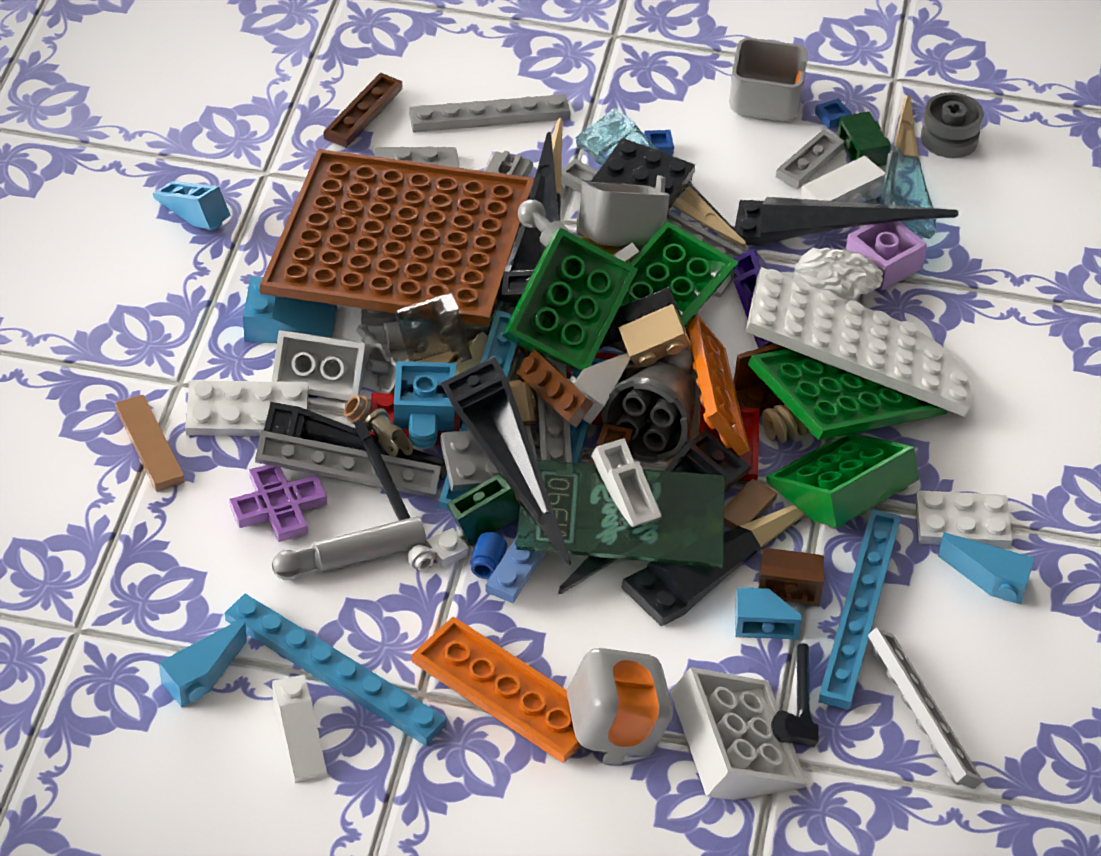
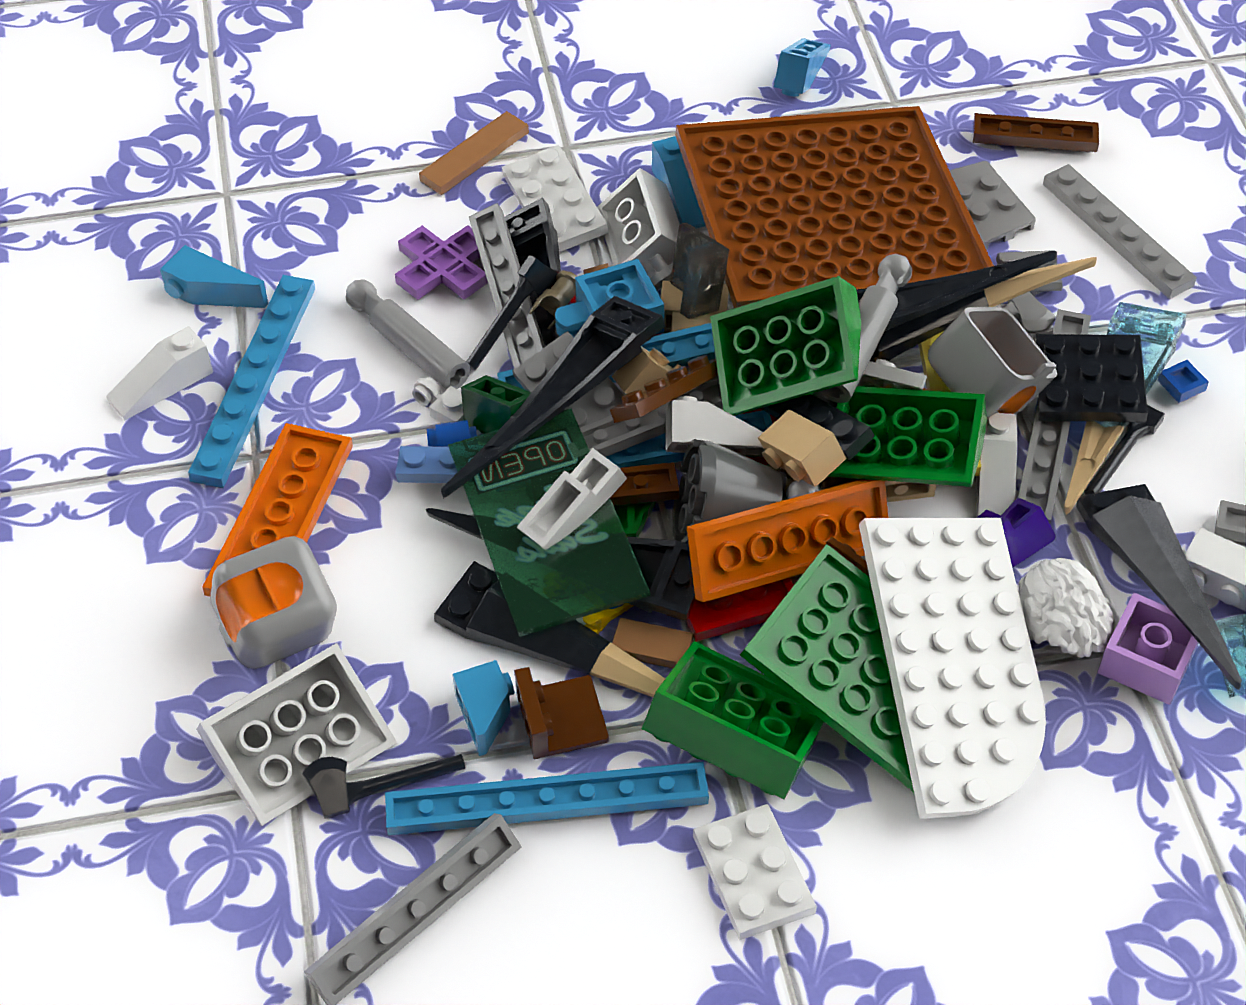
camera: 70 degrees right, 5 degrees up
(991, 568) = (673, 926): dark azure slope -> none

